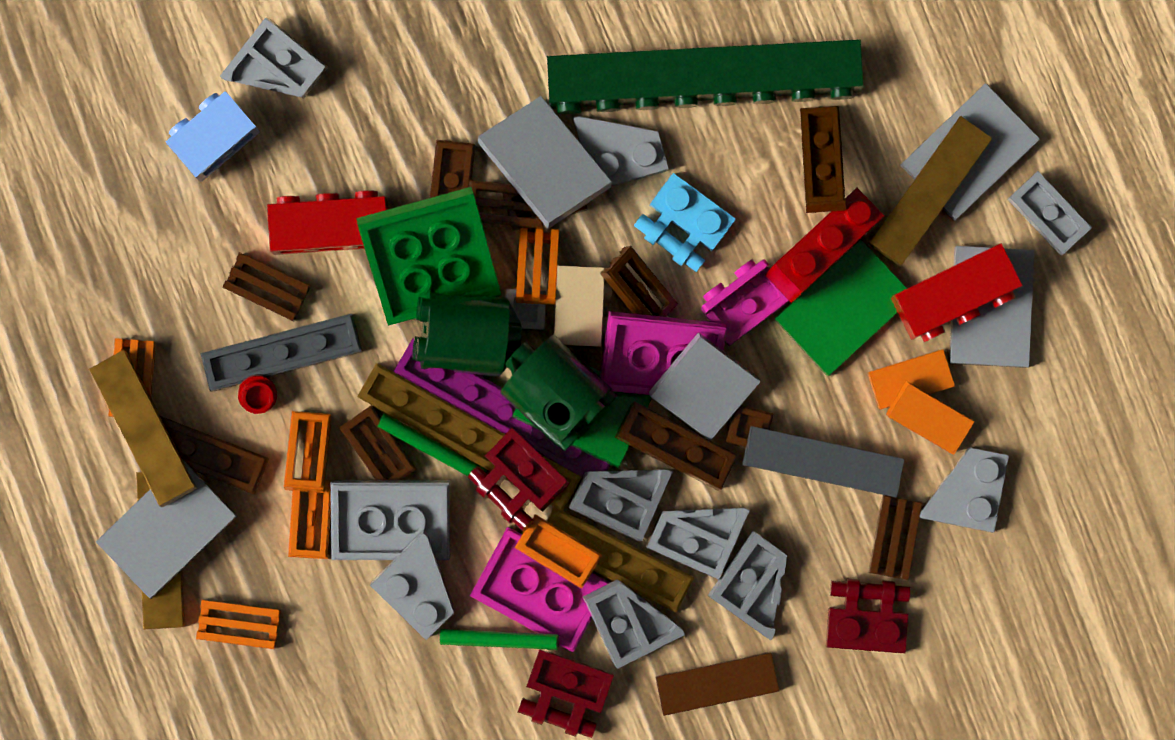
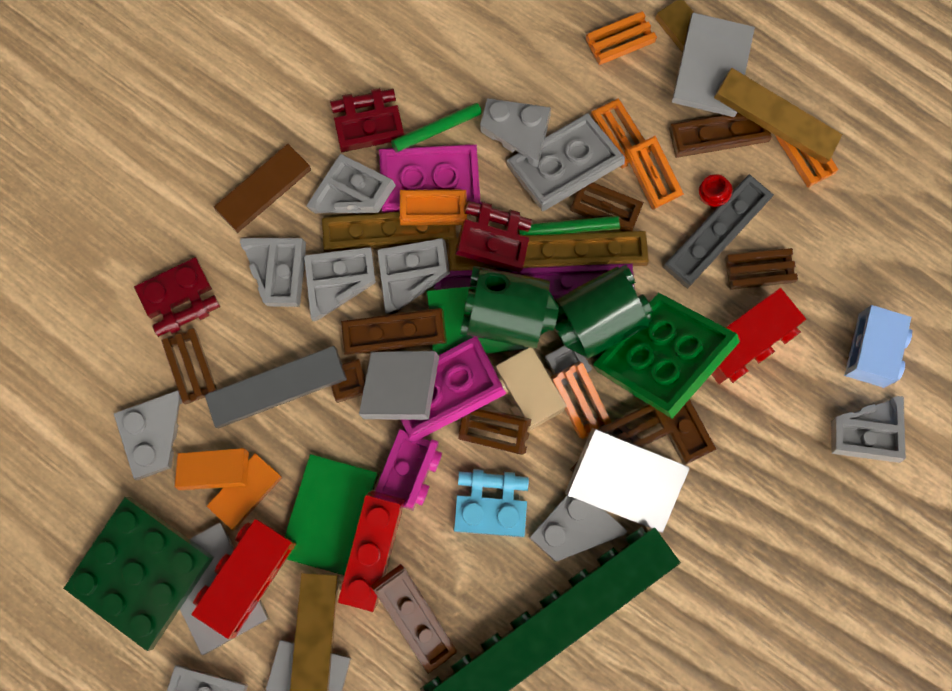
camera: 140 degrees right, 10 degrees down
(1051, 361) = (138, 573): none -> dark green plate

